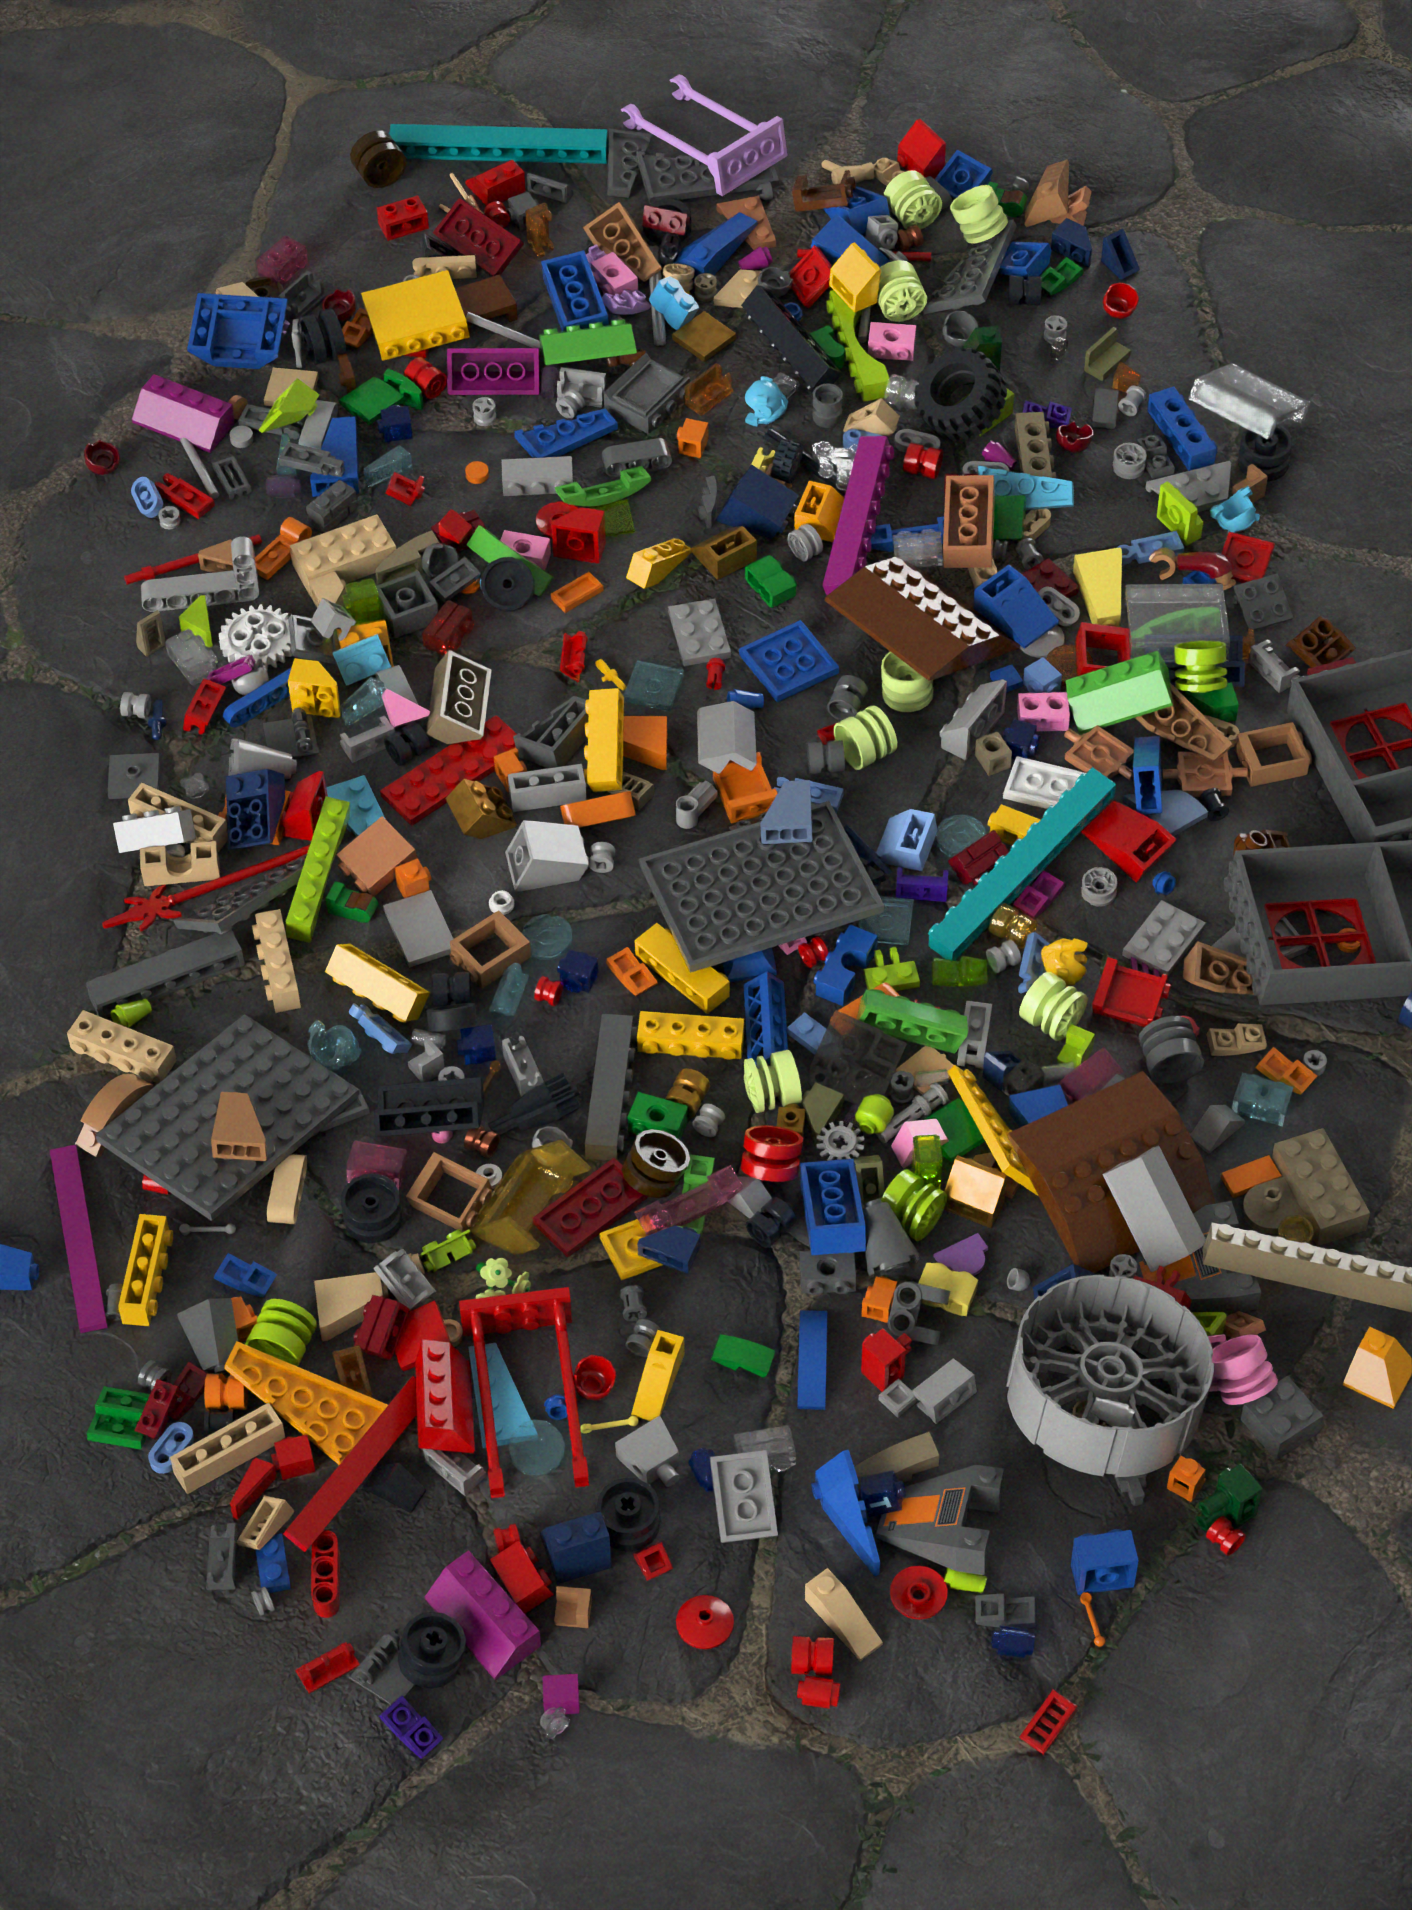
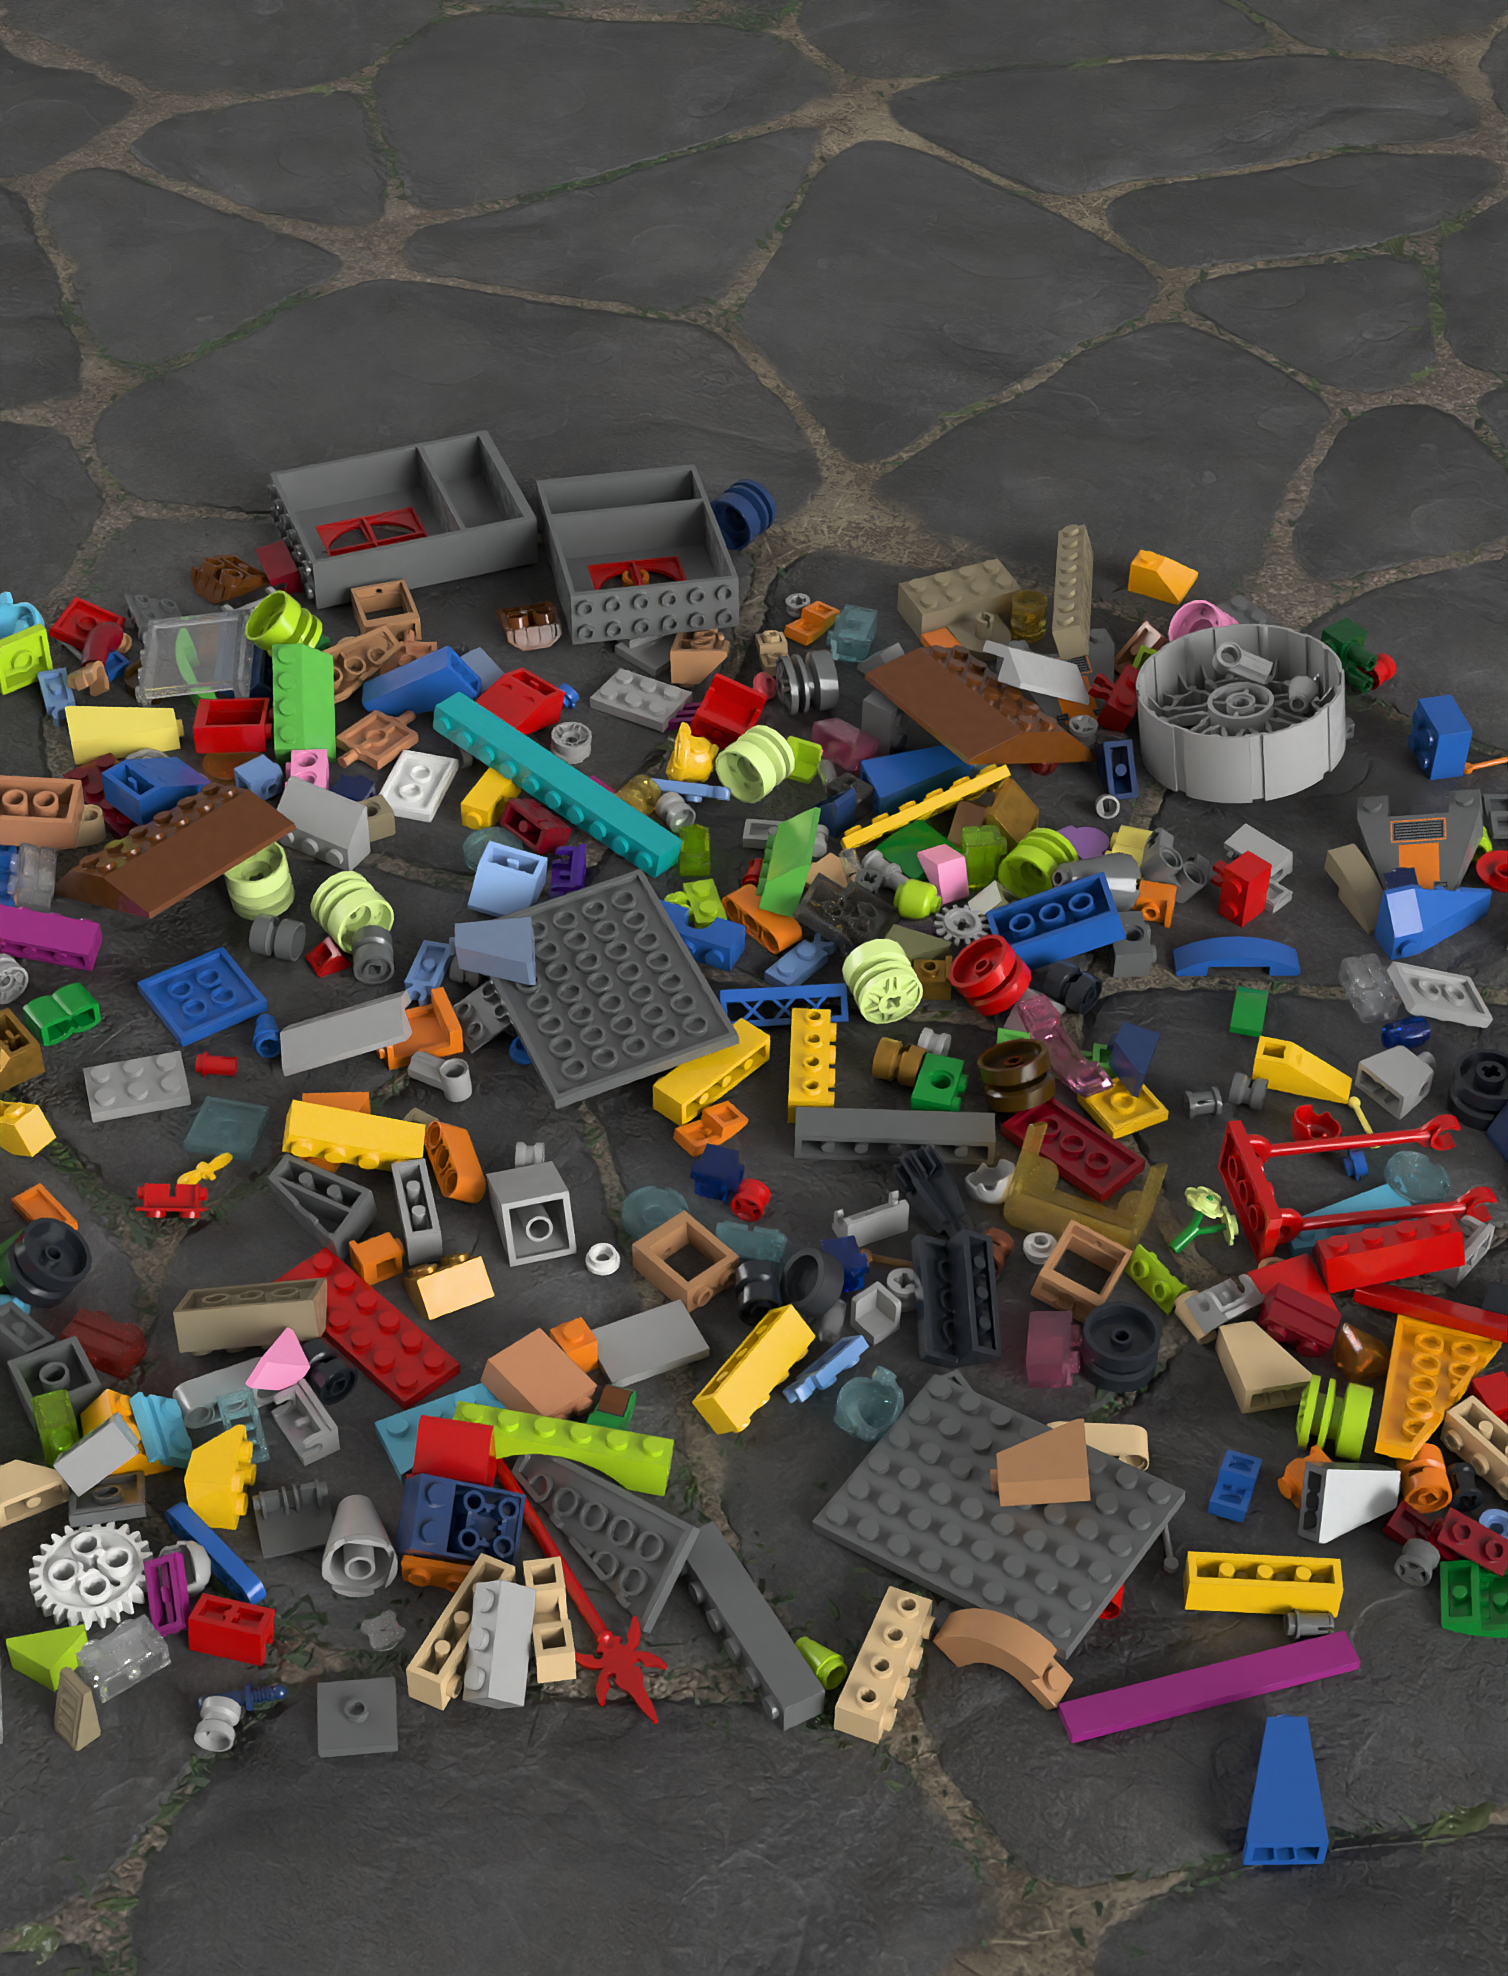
camera: 95 degrees left, 10 degrees down
(277, 959) = (724, 1485): tan brick -> none
(1160, 1359) = (1245, 665): none -> light grey piece

